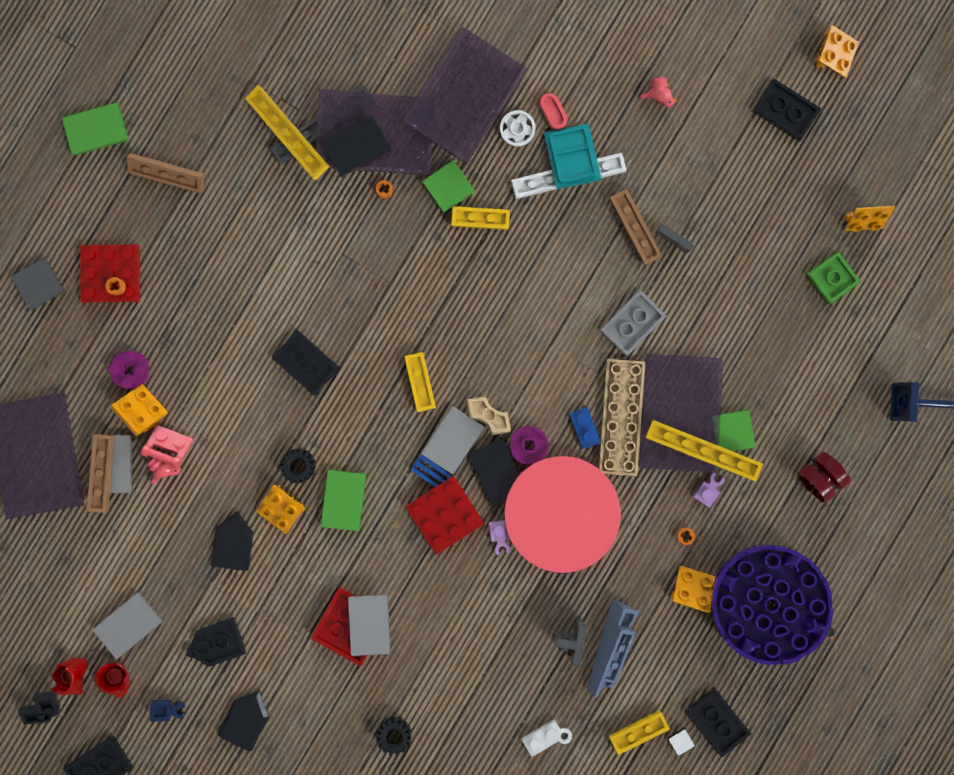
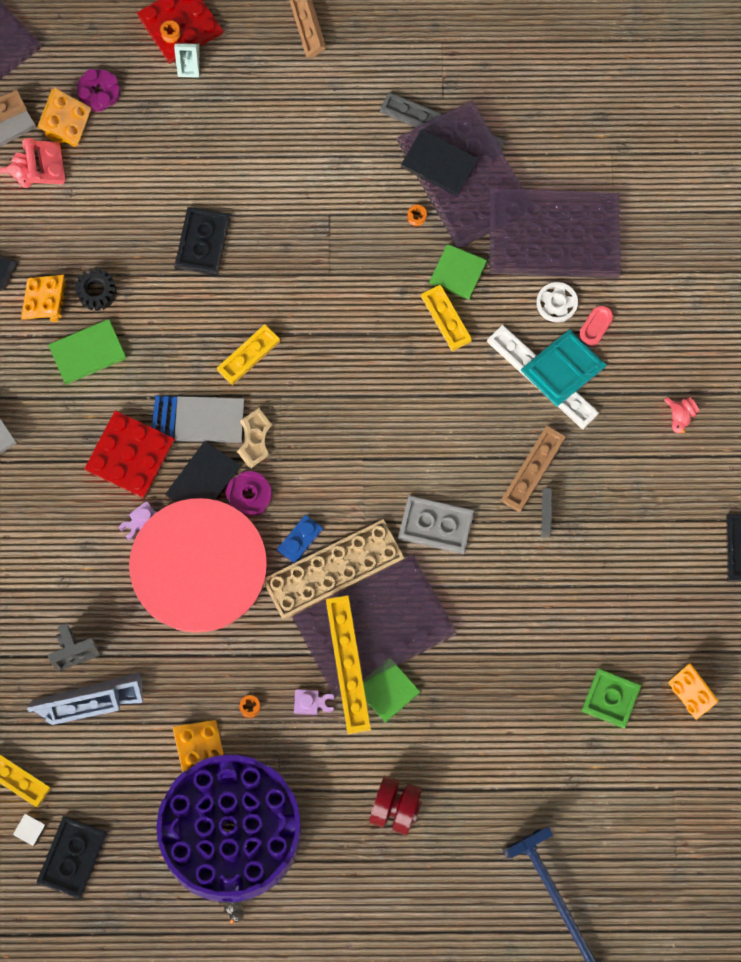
camera: 60 degrees right, 15 degrees down
(147, 286) = (187, 59): none -> light aqua slope
(287, 132) = (412, 96): yellow plate -> none

